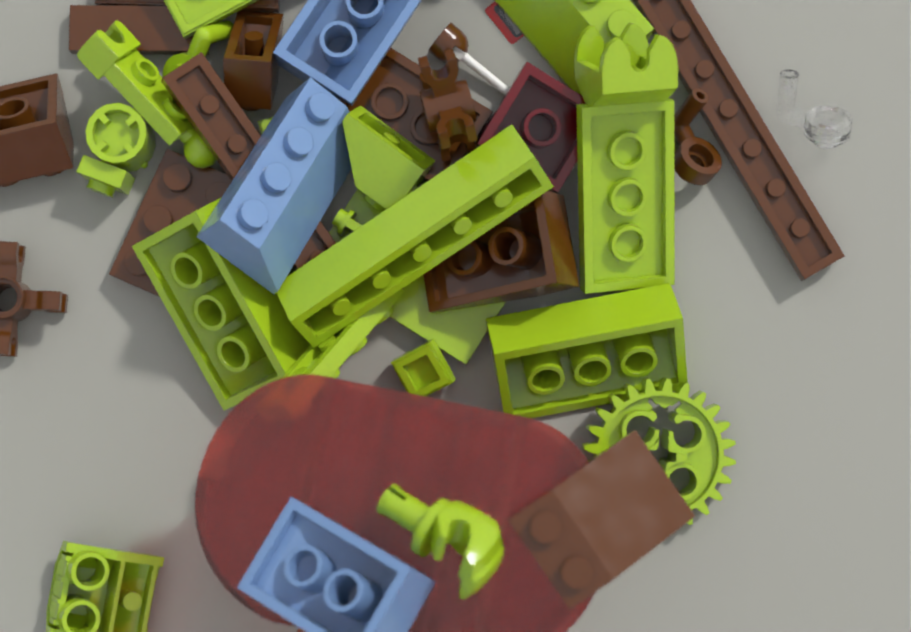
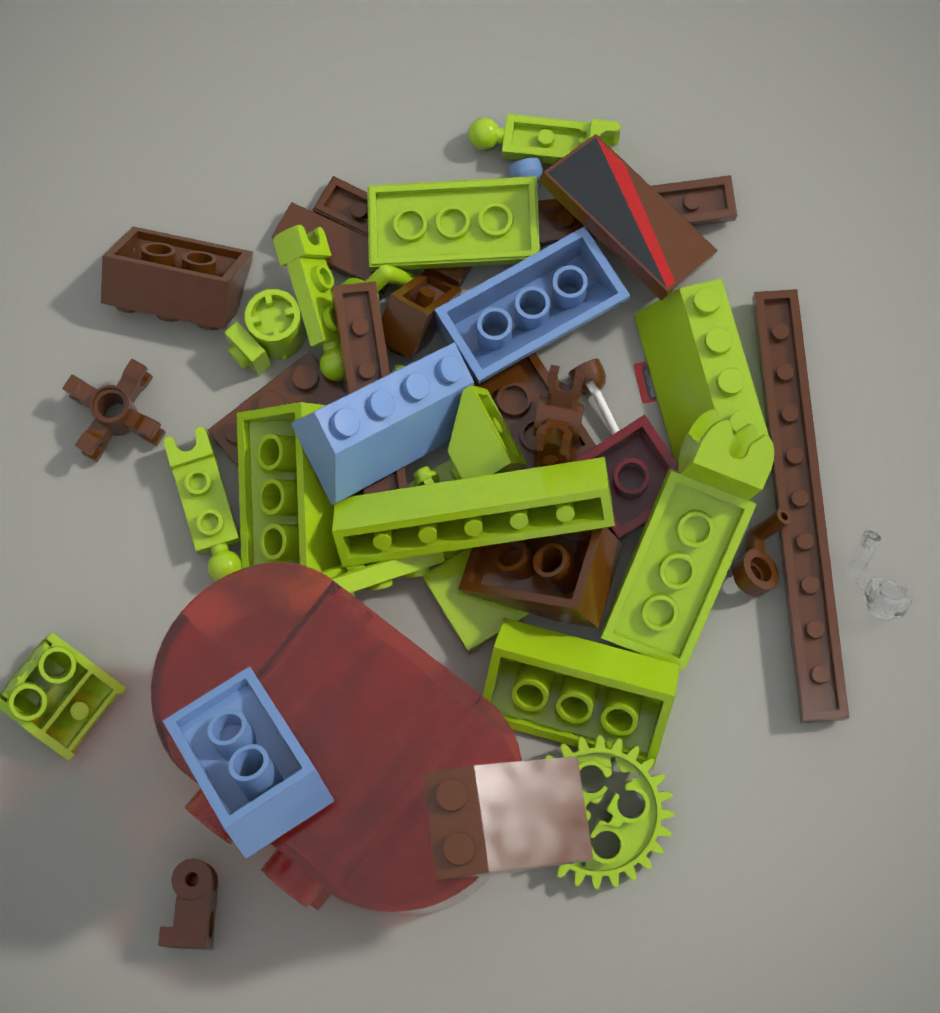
camera: 30 degrees right, 10 degrees down
(146, 347) = (205, 503): none -> lime plate
(423, 369) = (431, 634): lime tile -> none
(454, 522) = (382, 763): lime piece -> none

